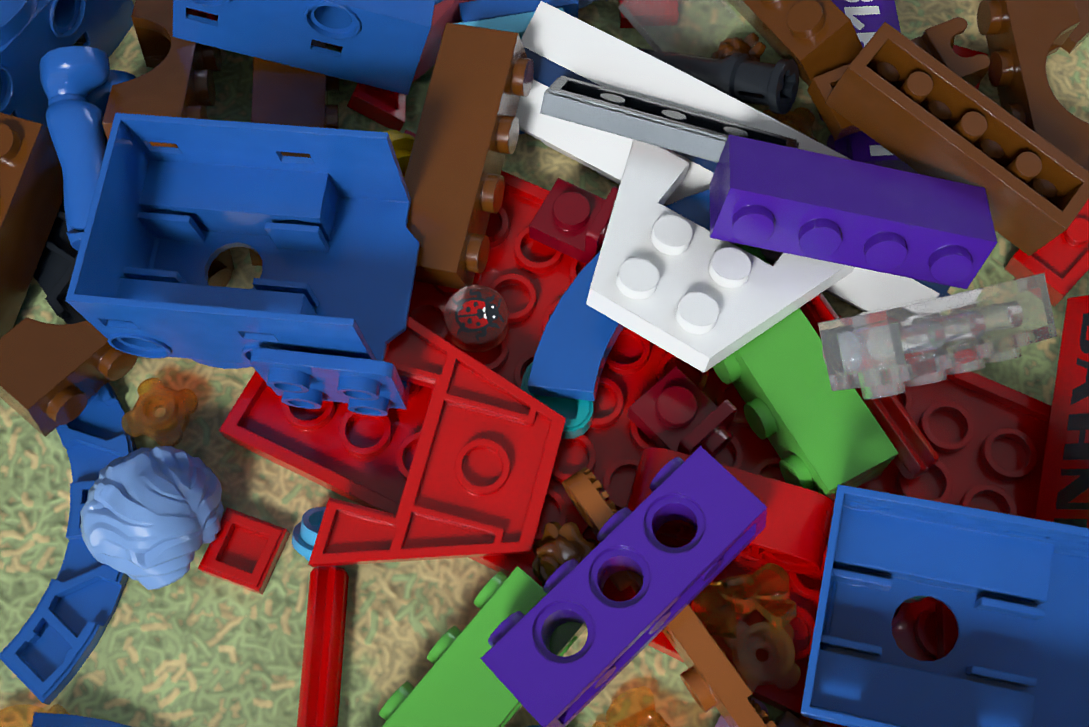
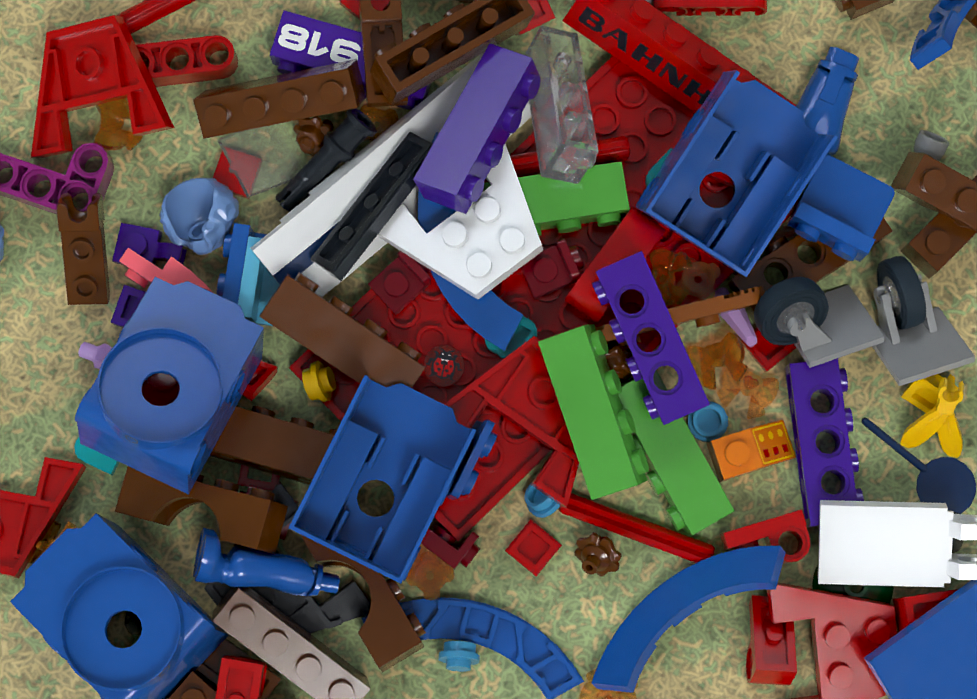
camera: 70 degrees left, 15 degrees up
(41, 493) = (459, 655): none -> dark azure plate
(152, 514) = (500, 590): medium blue hair -> none
(201, 414) = (441, 544): none -> dark red bracket
(255, 652) = (597, 555): none -> reddish brown plant
(469, 542) = (594, 411): none -> bright green brick

